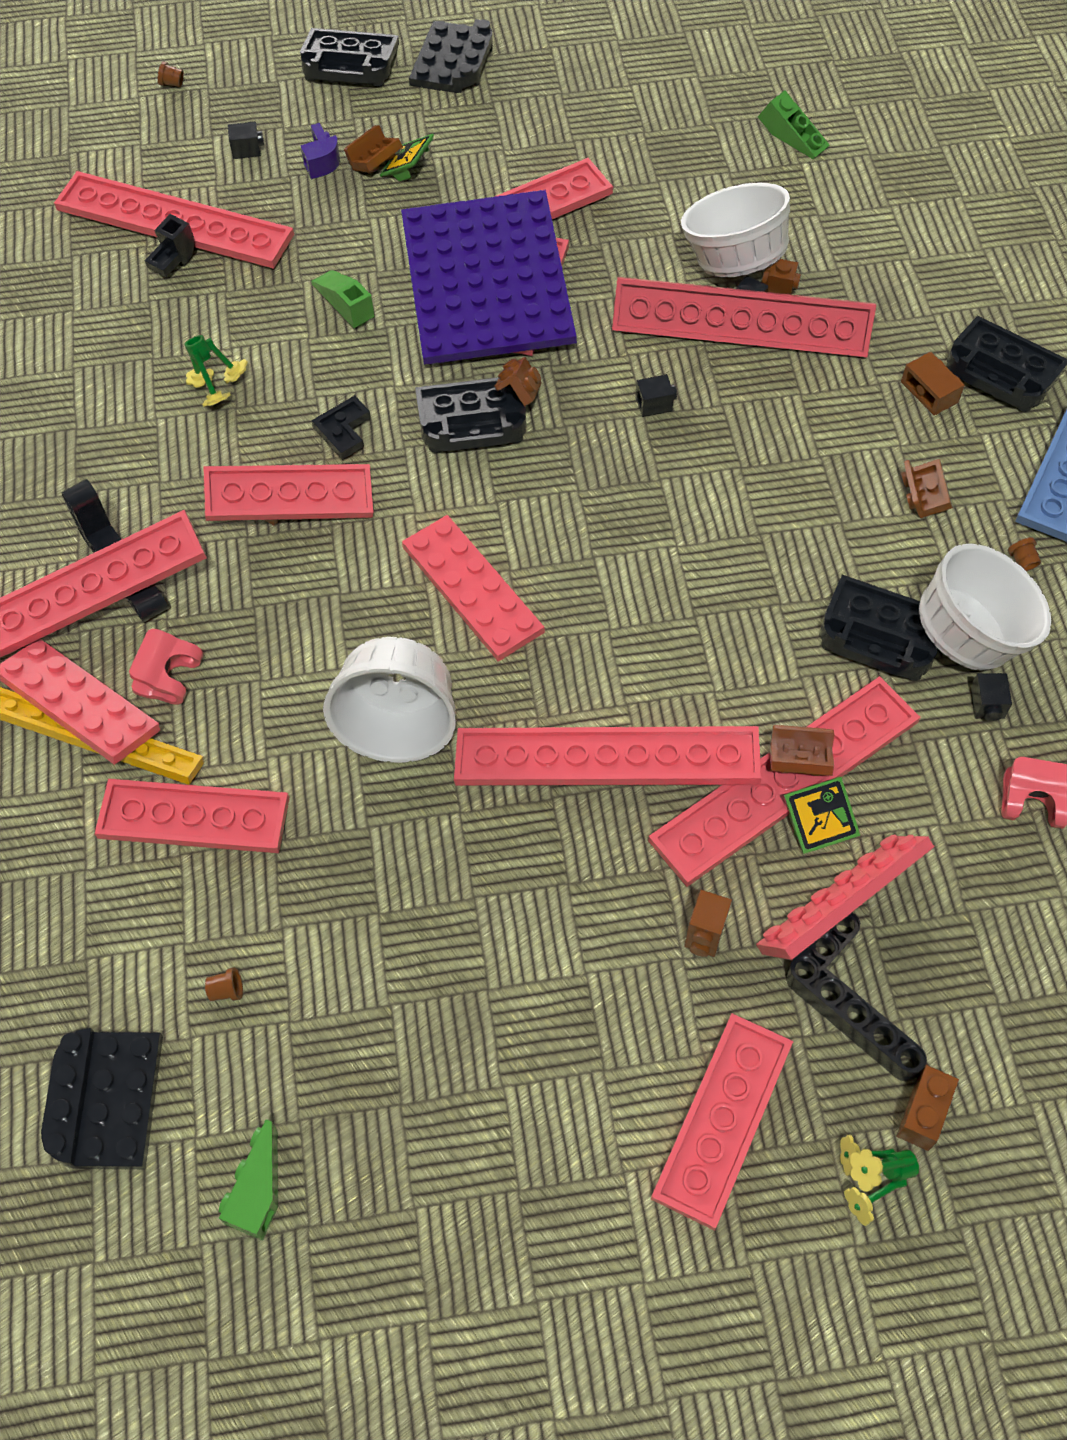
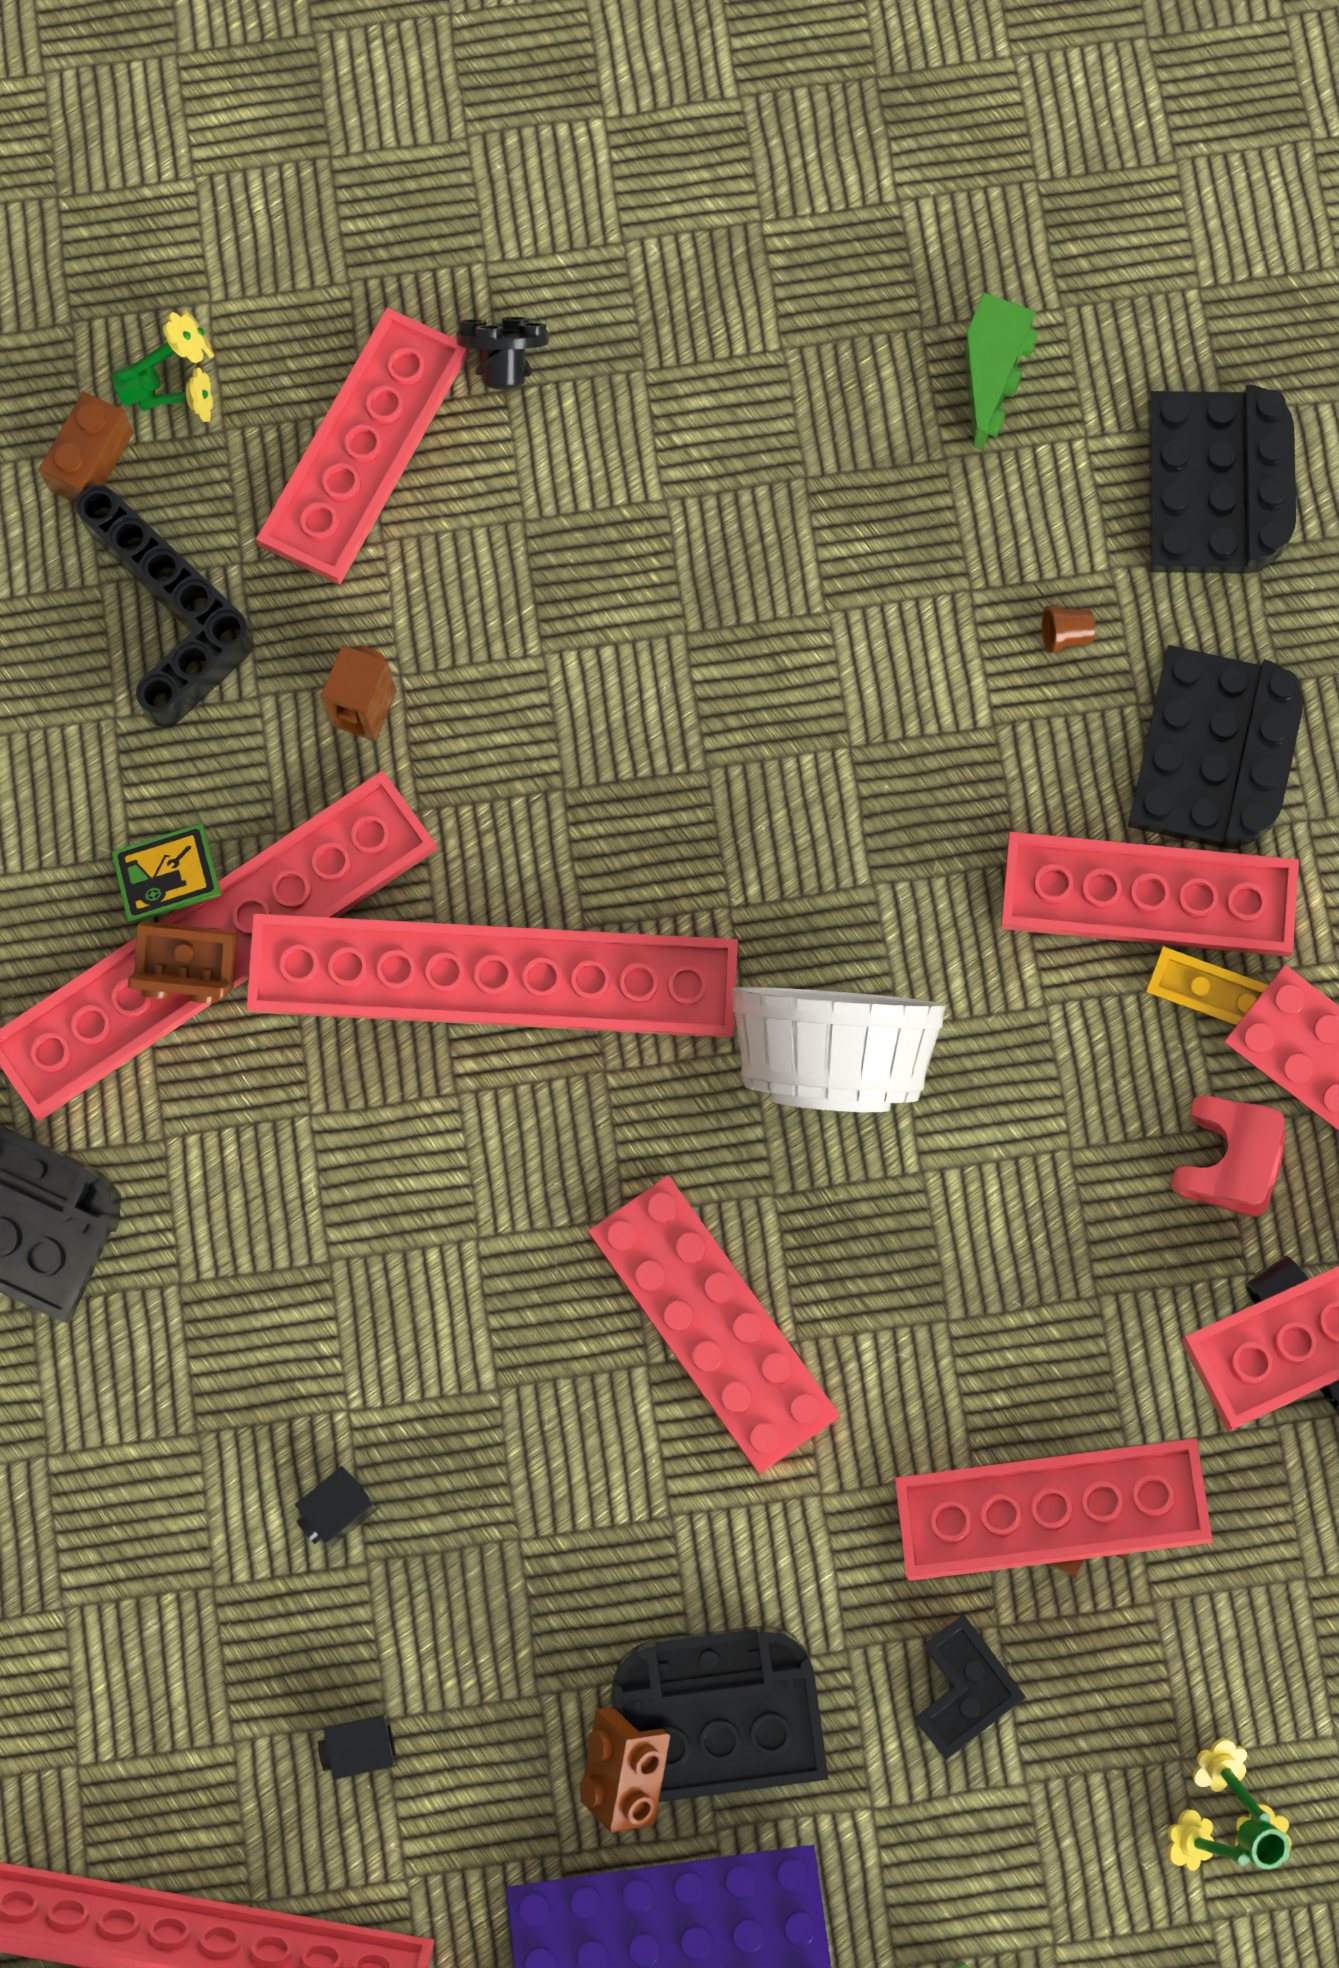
camera: 175 degrees left, 15 degrees up
(134, 909) = (1217, 749): none -> black plate
(624, 1194) = (502, 348): none -> black plate
(677, 493) = (334, 1508): none -> black brick
(844, 896) = (151, 734): coral plate -> none

